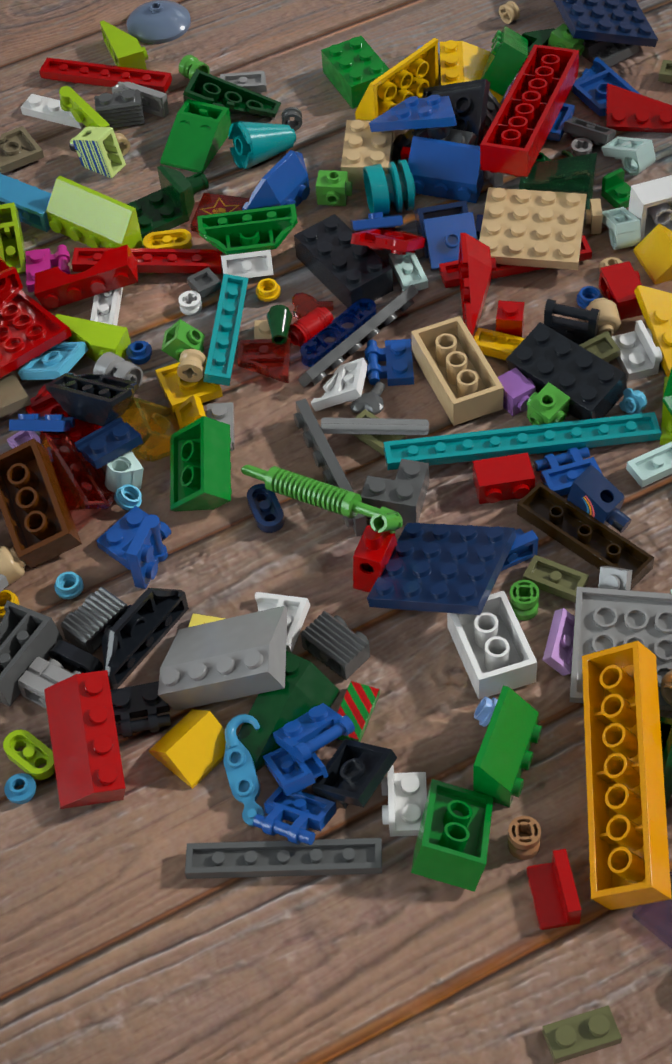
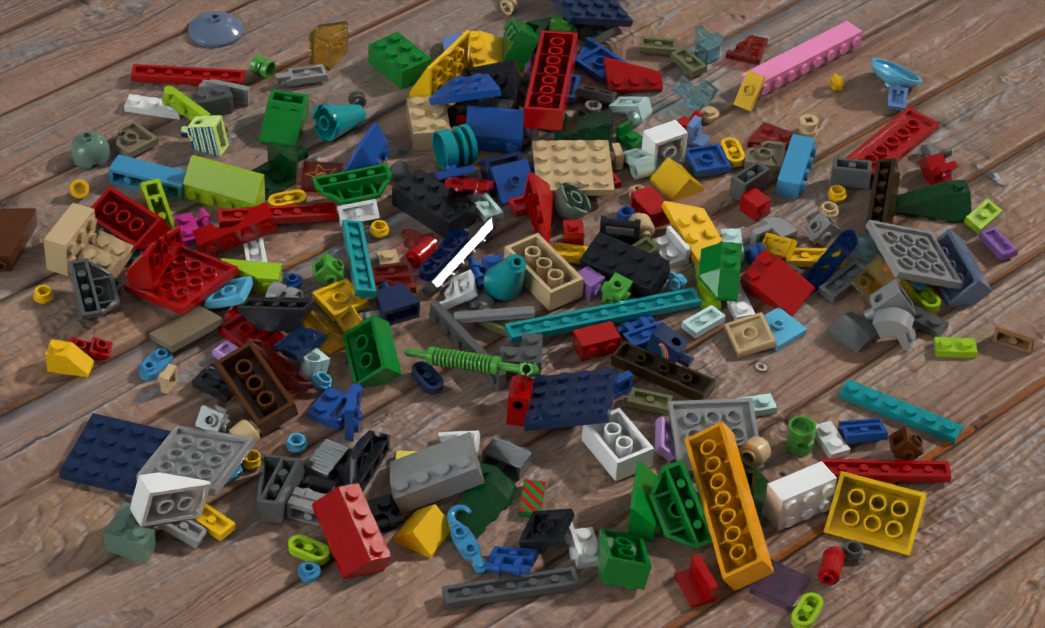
camera: 20 degrees left, 10 degrees down
(36, 422) = (234, 334): blue plate -> none
(123, 47) = (195, 52): lime slope -> none
(185, 306) = (320, 243): white bush -> none
(191, 365) = (342, 285): tan wheel -> none
(204, 282) = (327, 228): dark grey plate -> none
(222, 93) = (292, 82): dark green wedge -> none
(255, 396) = (396, 303): none -> dark blue torso
(276, 46) = (328, 43): none -> clear yellow slope
(279, 322) = (400, 250): dark green cone -> none
(291, 773) = (503, 532): blue plate -> none
(312, 731) = (509, 509): blue plate -> none
(313, 213) = (399, 170): none -> dark grey rock
(333, 187) = (409, 149): bright green brick -> none
(402, 377) = (506, 278): none -> teal cone
(485, 710) = (624, 486): light blue plate -> none
(516, 275) = (570, 203): none -> sand green cylinder
(524, 599) = (634, 412): bright green wheel -> none
(524, 845) = (669, 555): medium nougat wheel -> none
(551, 766) = (679, 507): none -> green wedge
(615, 578) = (692, 394): light grey plate -> none

